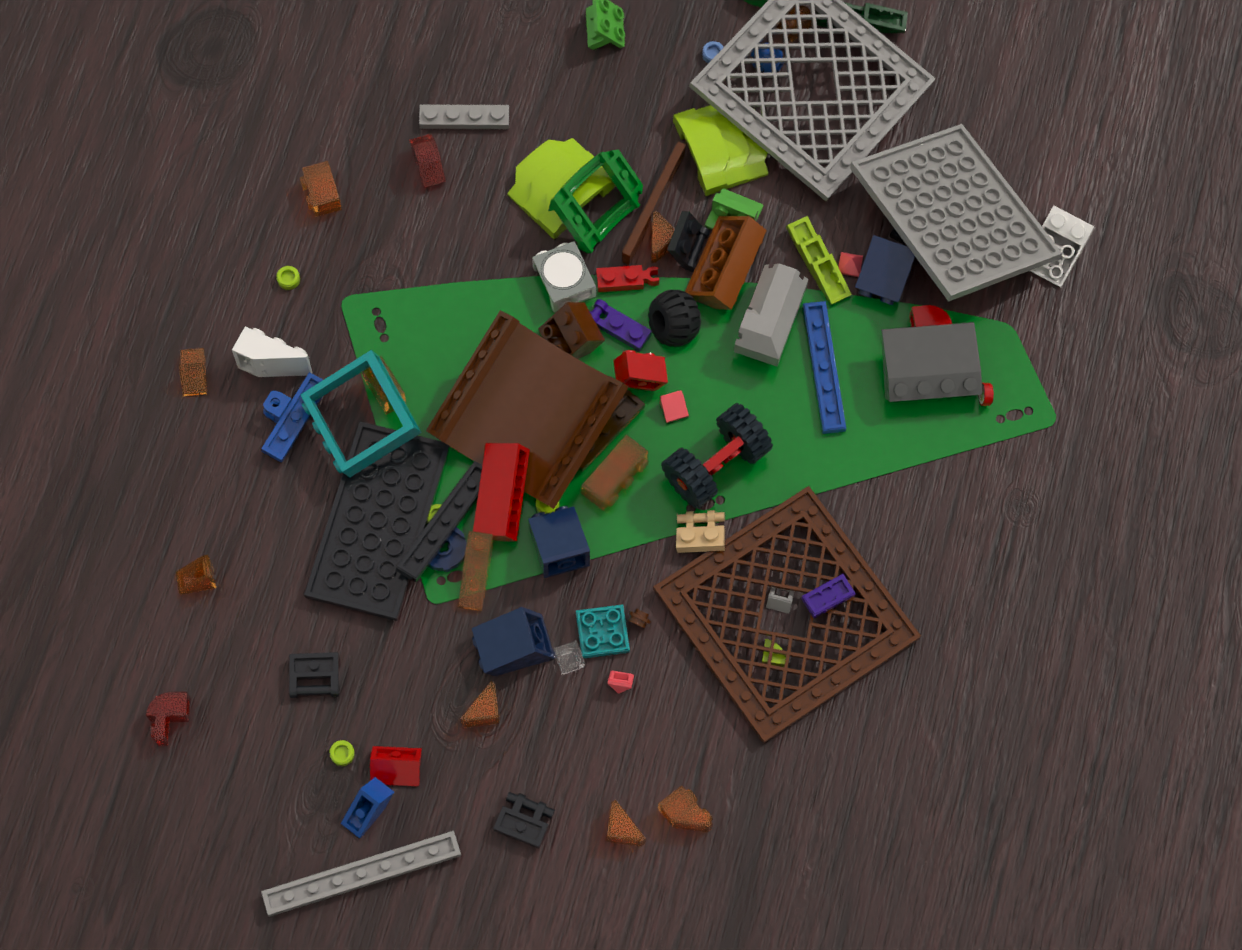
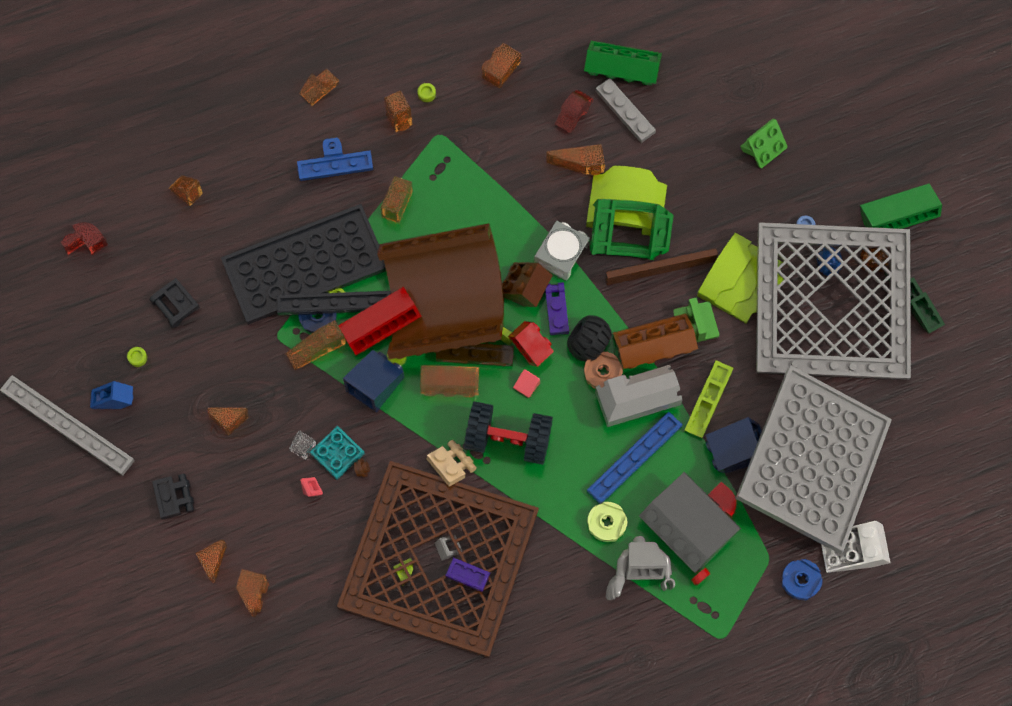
camera: 55 degrees right, 0 degrees up
(269, 356) = (360, 118): white slope -> none
(292, 315) = (398, 111): none -> clear orange brick
(383, 447) = (383, 210): teal window -> none
(396, 765) = (151, 393): red panel -> none
(414, 80) = (622, 62): none -> green slope
(483, 192) = (579, 159): none -> clear orange slope
(512, 642) = (285, 403): dark blue slope -> none
(625, 278) = (593, 288): red plate -> none
(661, 236) = (639, 290): clear orange slope -> none
(683, 238) = (650, 301): black plate -> none
(719, 318) = (605, 360): none -> nougat plate
(850, 264) = (723, 419): coral slope -> none
(872, 424) = (597, 527): none -> yellowish green plate
(934, 435) = (640, 562): none -> light grey torso
(1059, 301) = (799, 568): none -> blue plate

